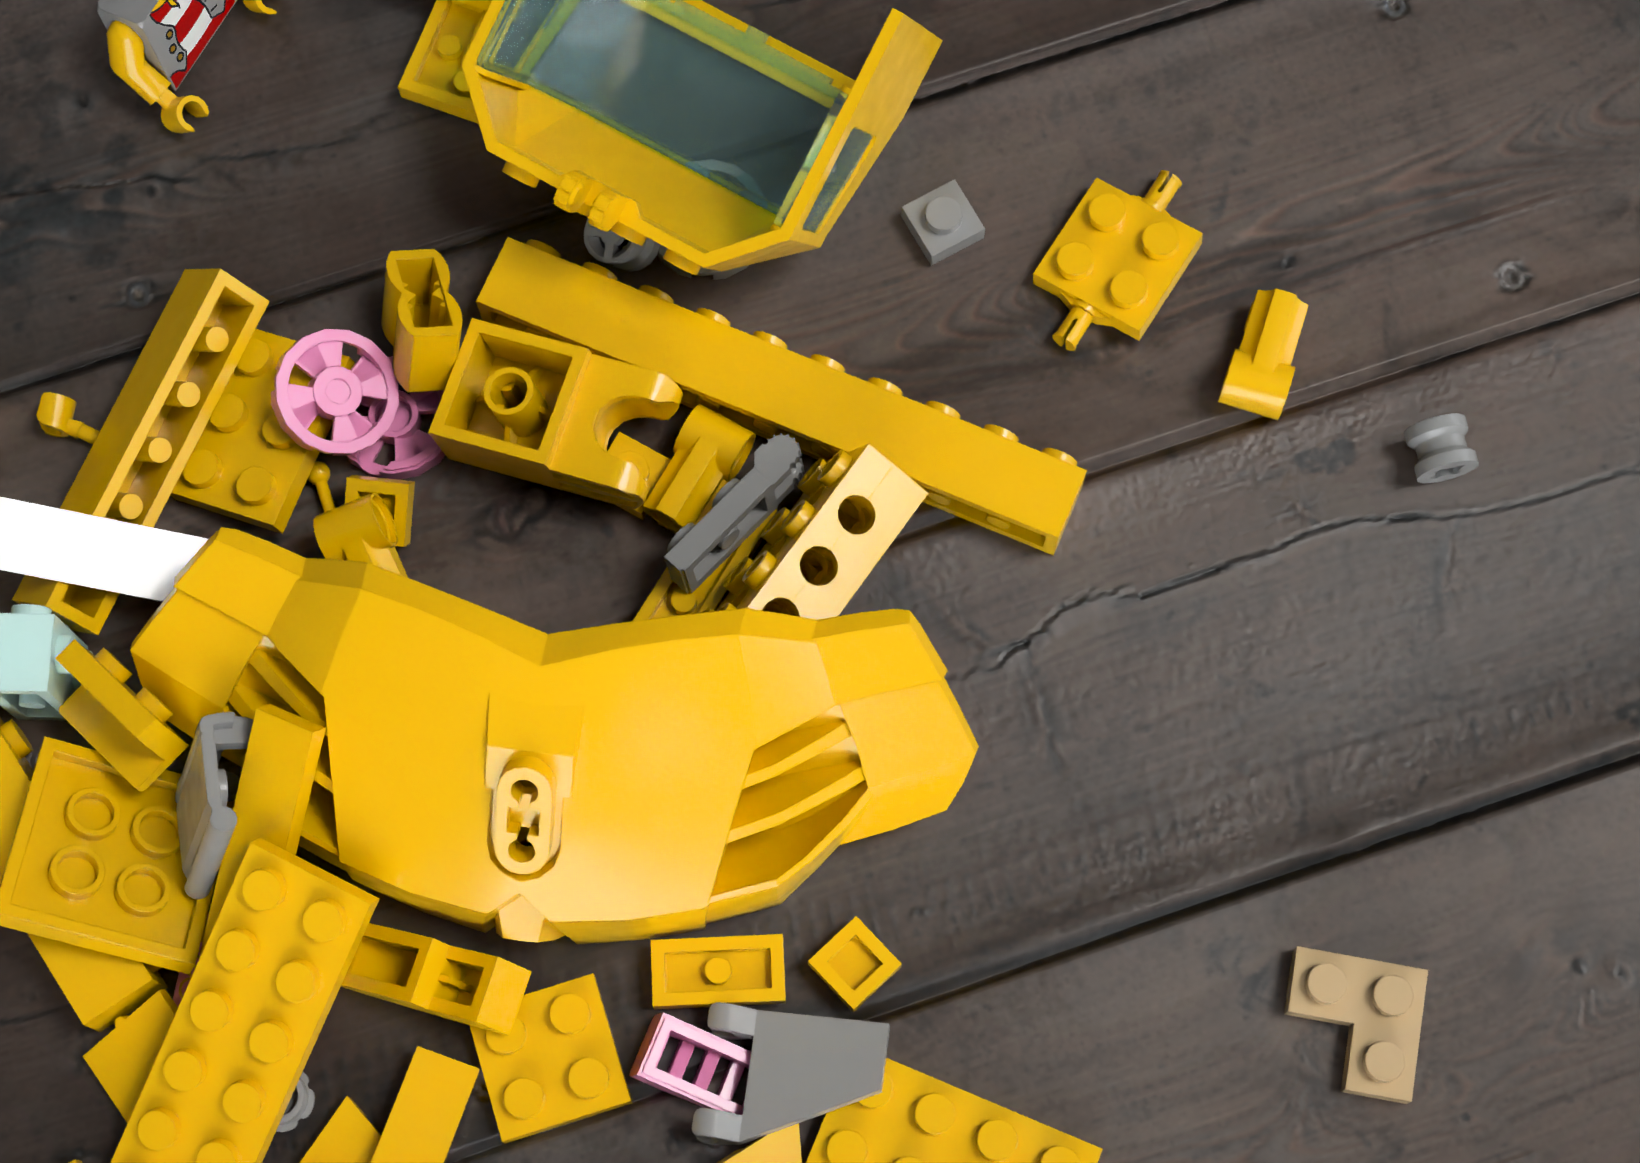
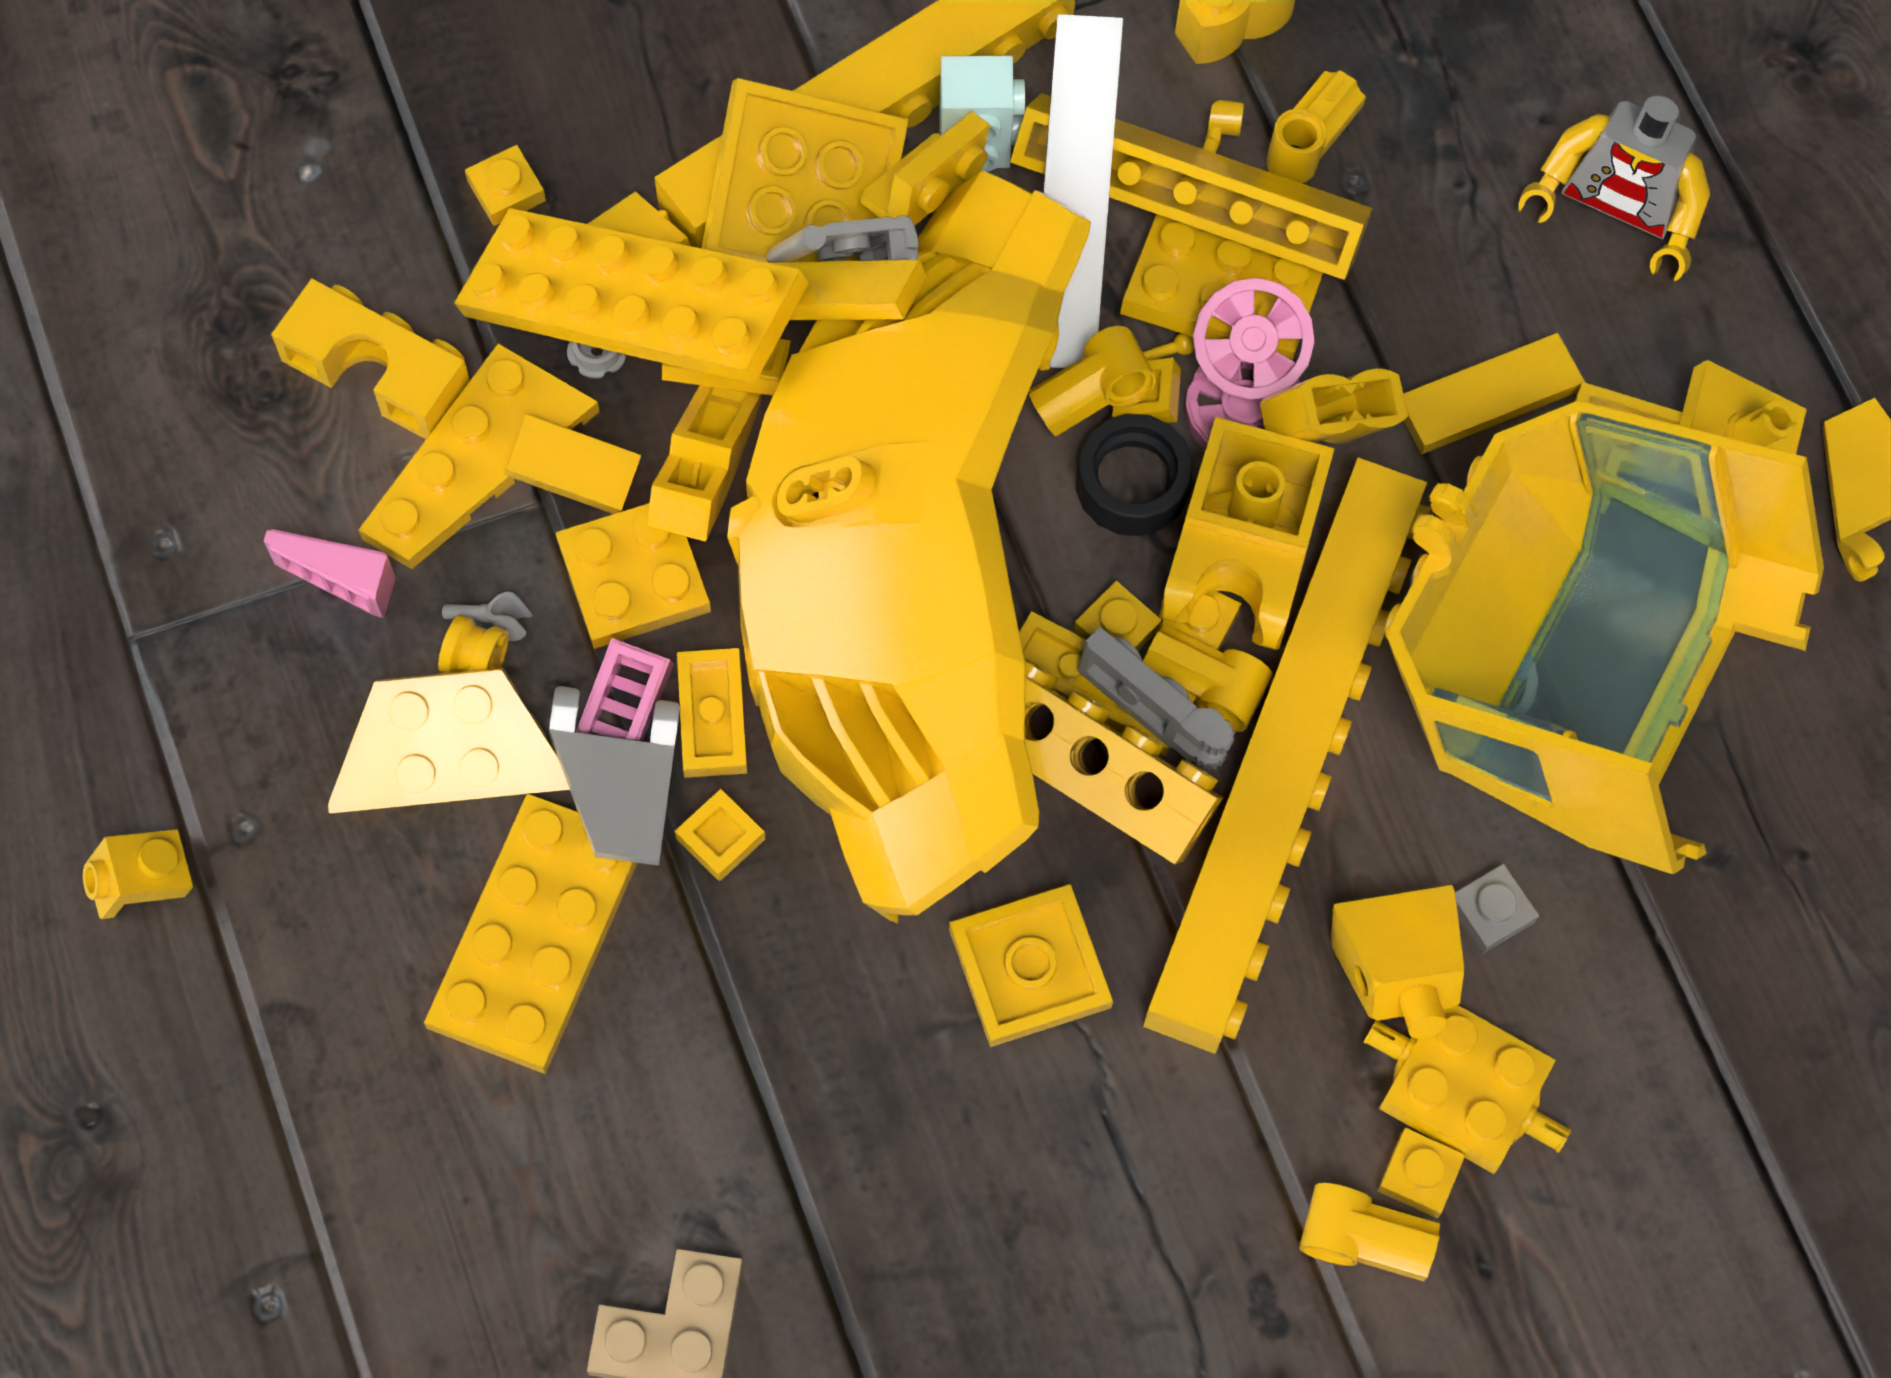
camera: 85 degrees right, 5 degrees down
(77, 324) = (1313, 126): none -> yellow piece
(396, 174) = (1490, 393): none -> yellow tile
(454, 485) = (1139, 432): none -> black tyre
(631, 556) = (1120, 616): none -> yellow plate
(1002, 299) = (1403, 956): none -> yellow torso
(1002, 653) = (1030, 965): none -> yellow plate
(1201, 307) = (1421, 1173): none -> yellow plate

